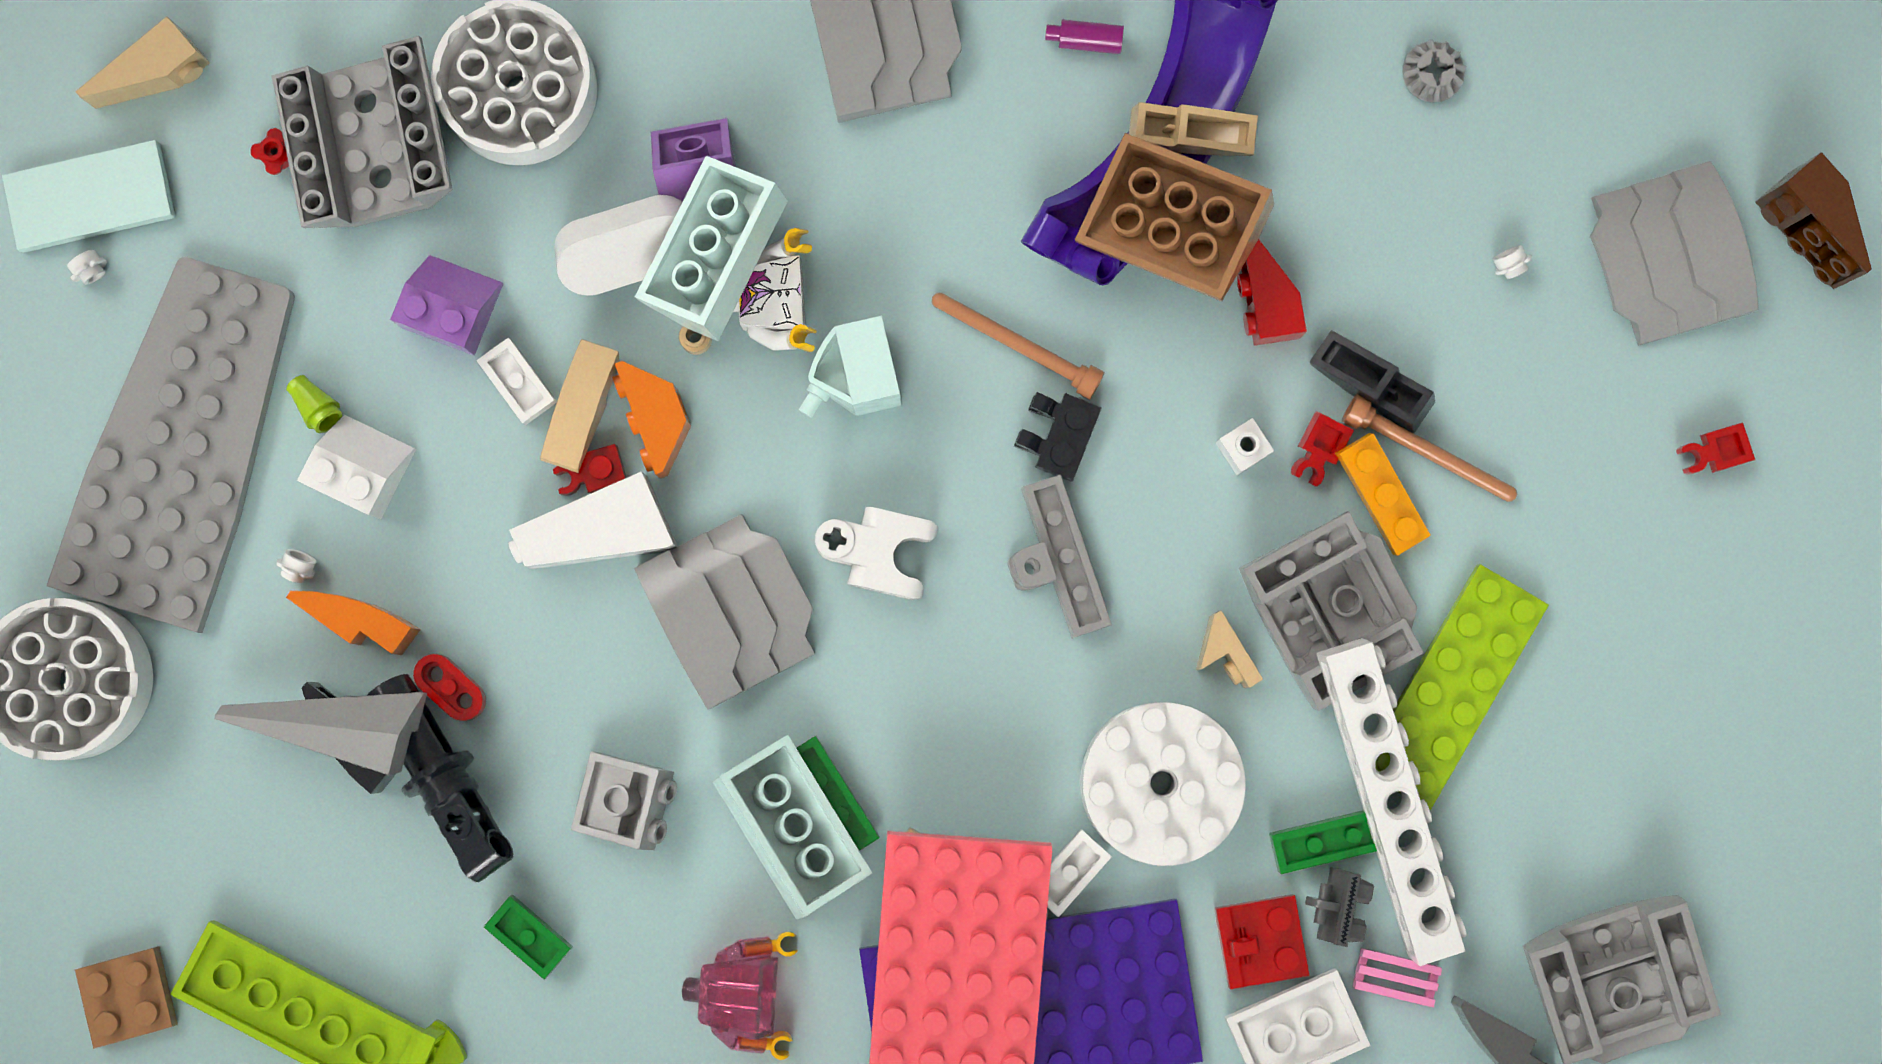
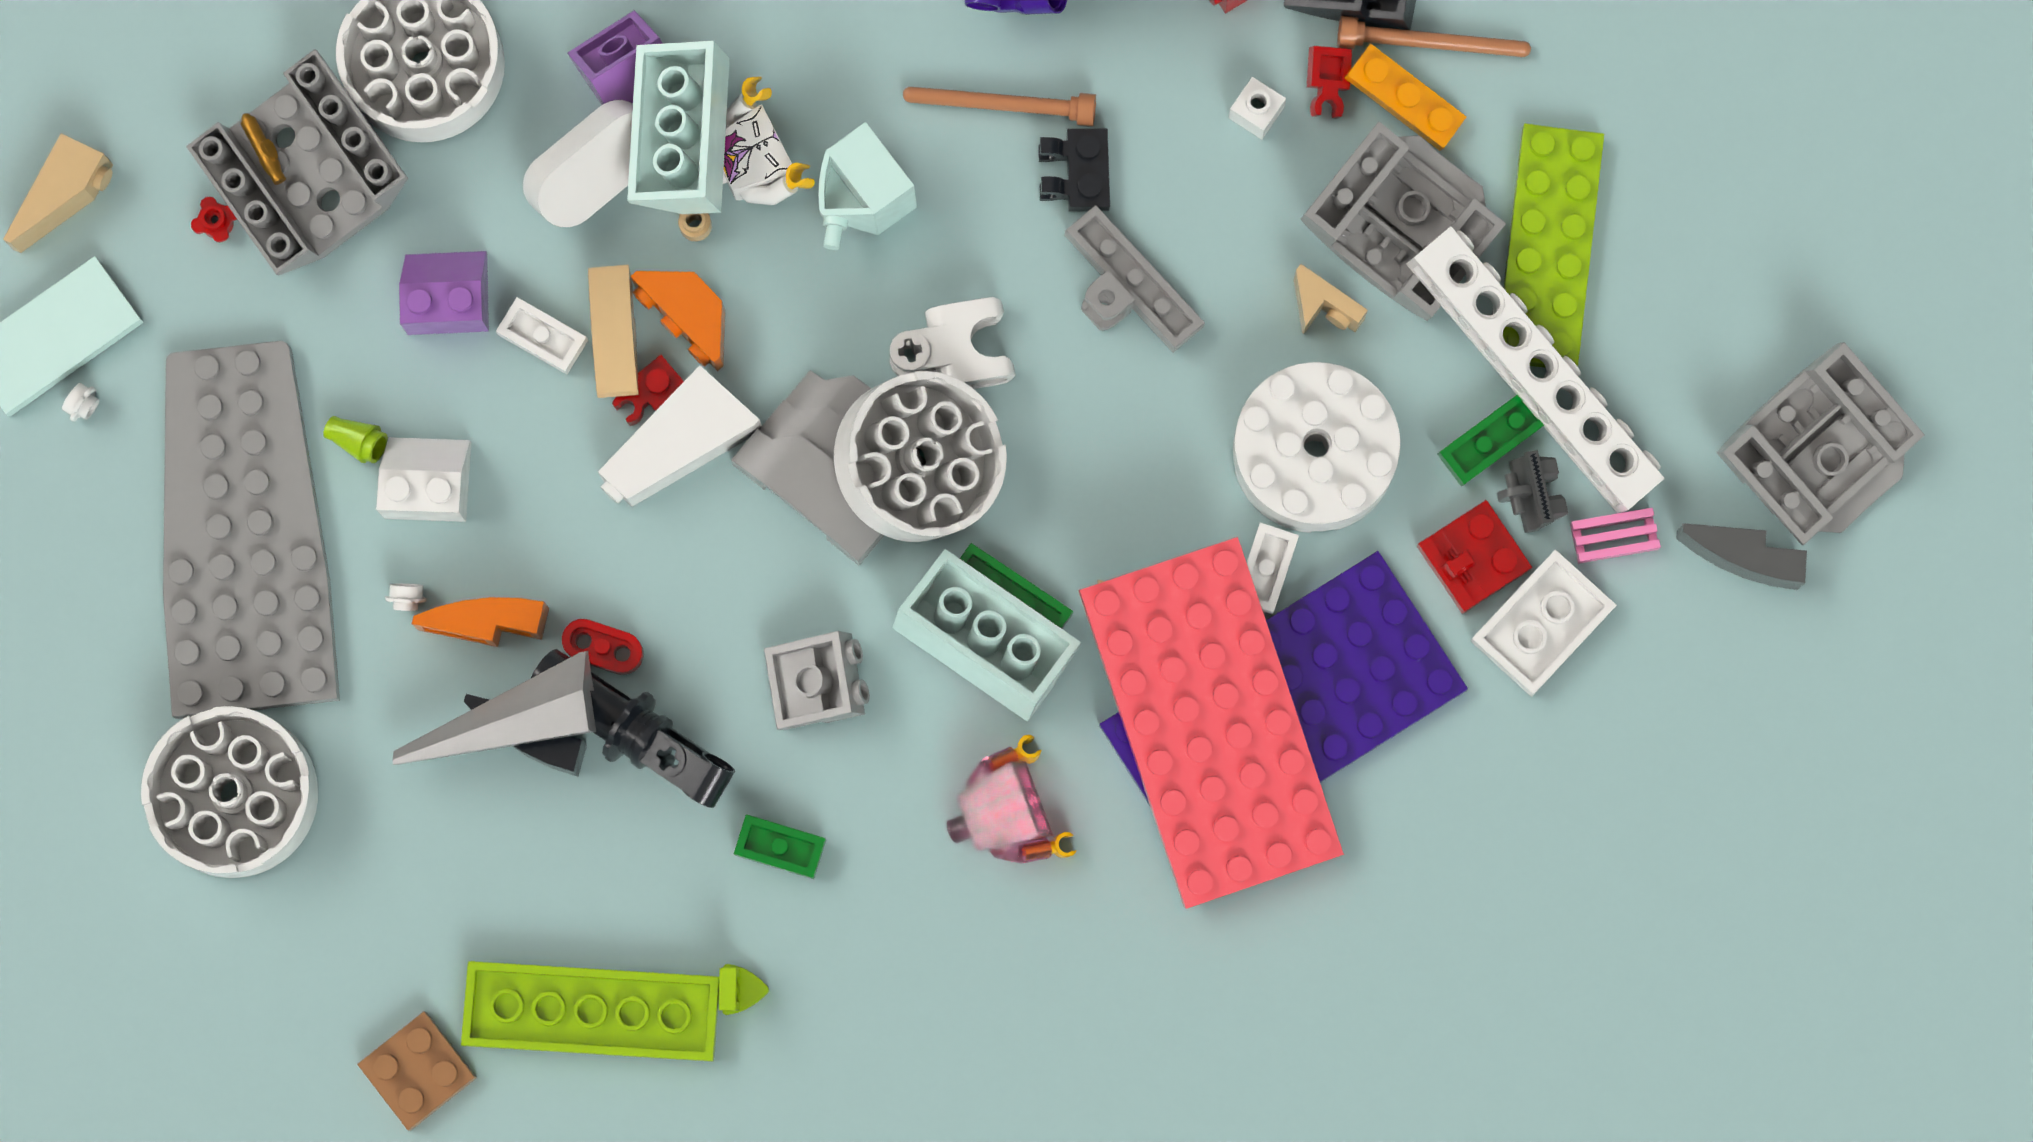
camera: 20 degrees left, 5 degrees down
(340, 106) = (264, 148): none -> pearl gold piece
(759, 637) = (880, 462): none -> white brick

